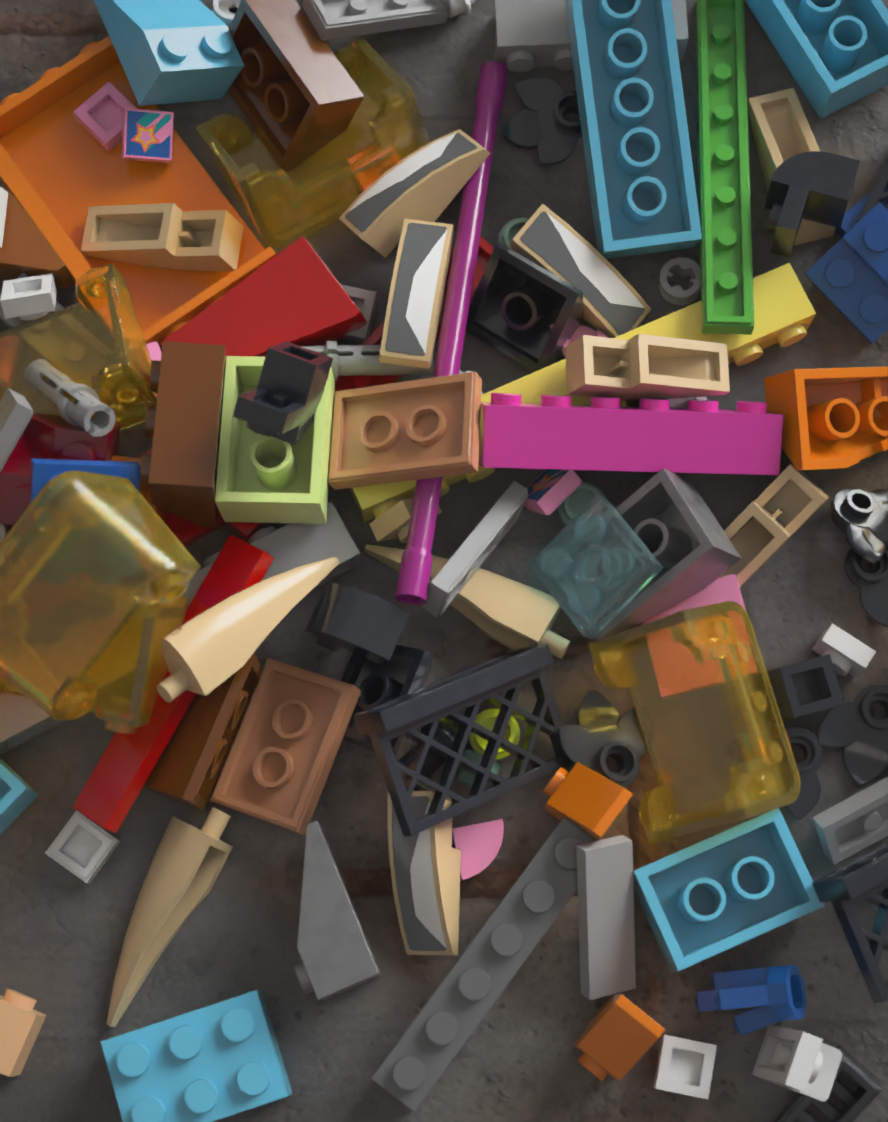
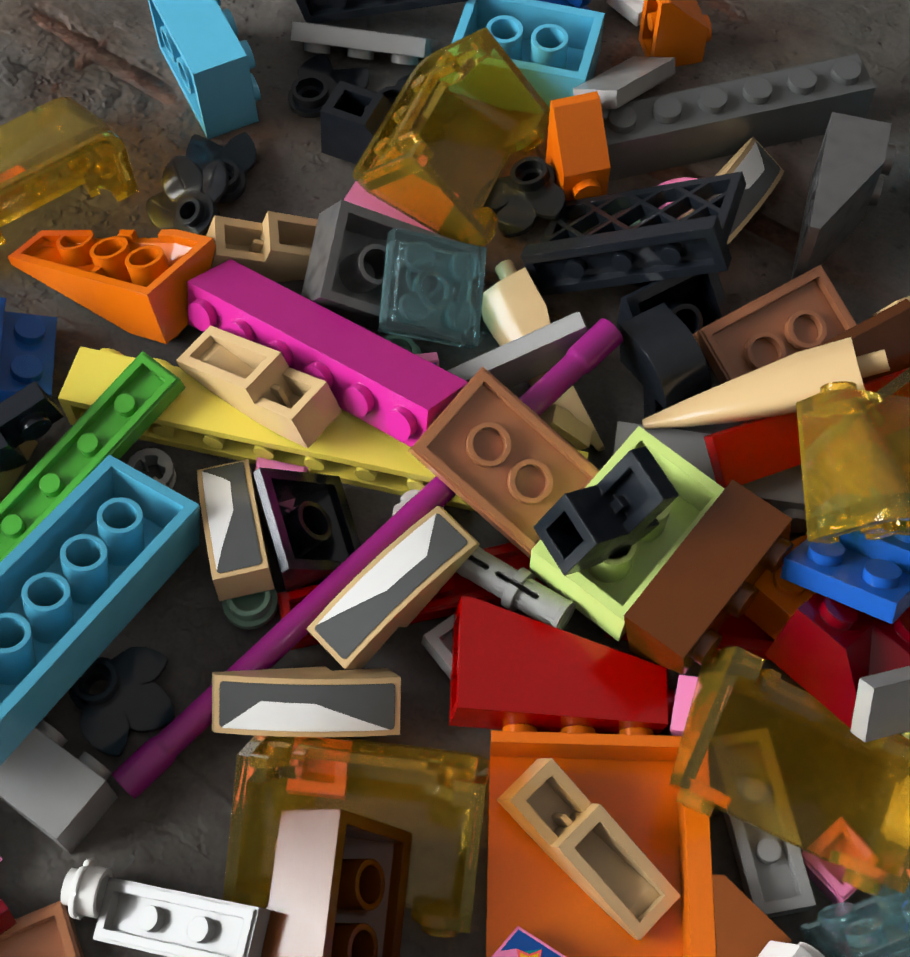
camera: 140 degrees left, 15 degrees down
(29, 297) = (773, 865): white plate -> none
(86, 399) = (805, 673): light grey pin -> none
(846, 652) = (301, 137): white plate -> none

